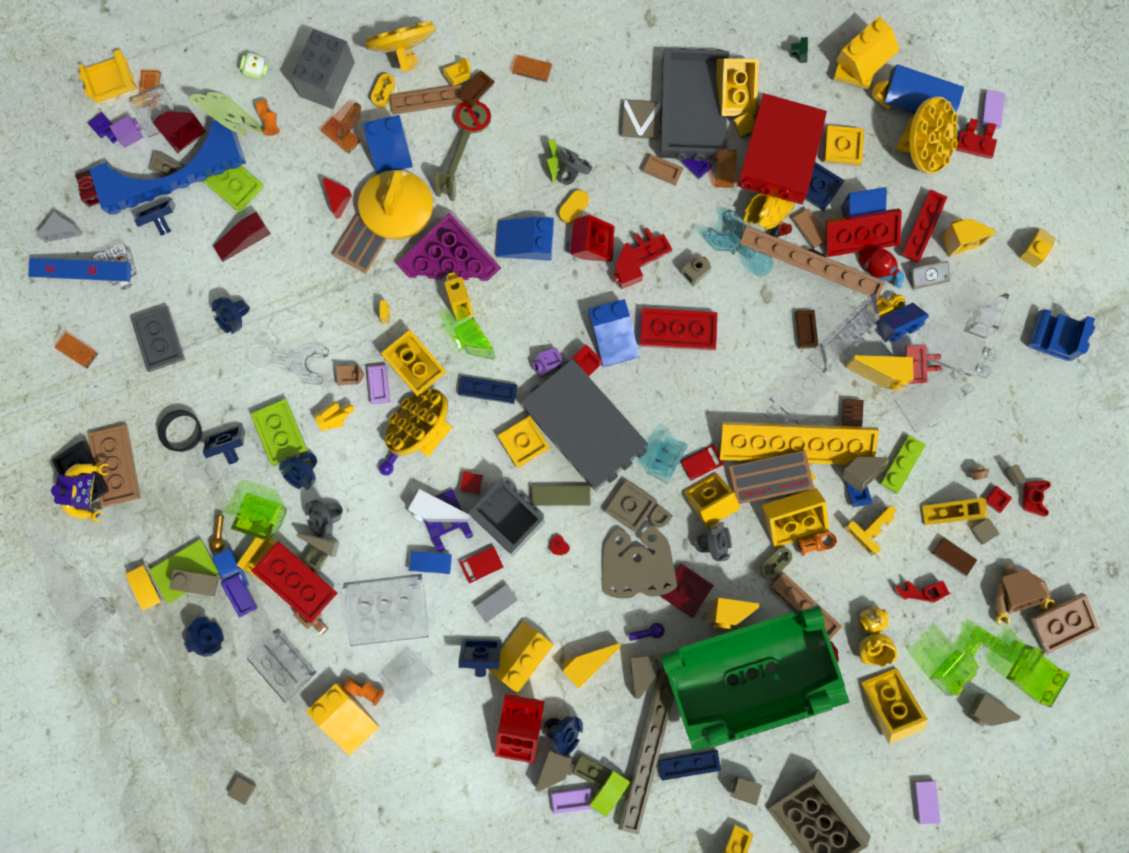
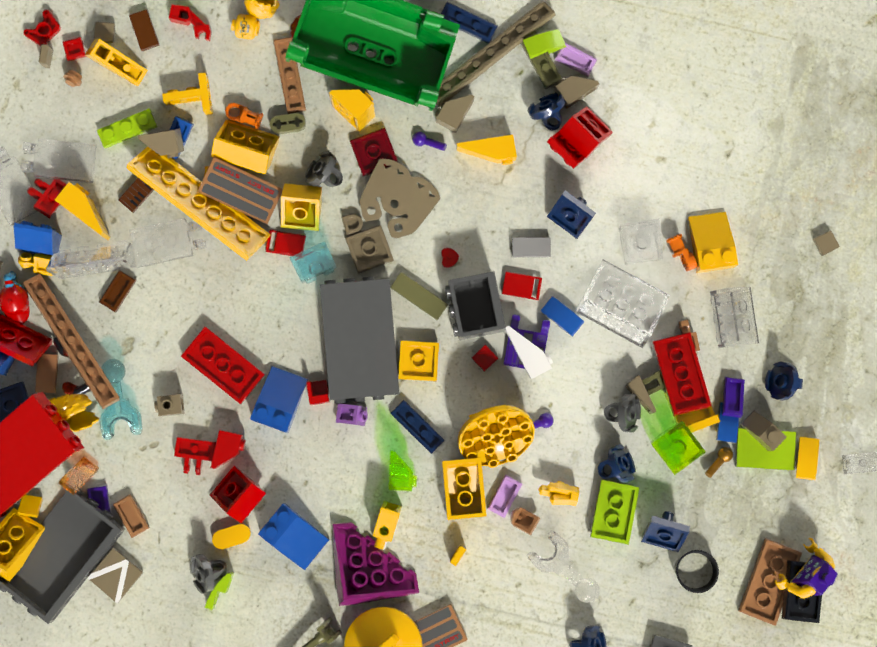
camera: 150 degrees left, 5 degrees up
(521, 656) = (539, 191): yellow slope -> none

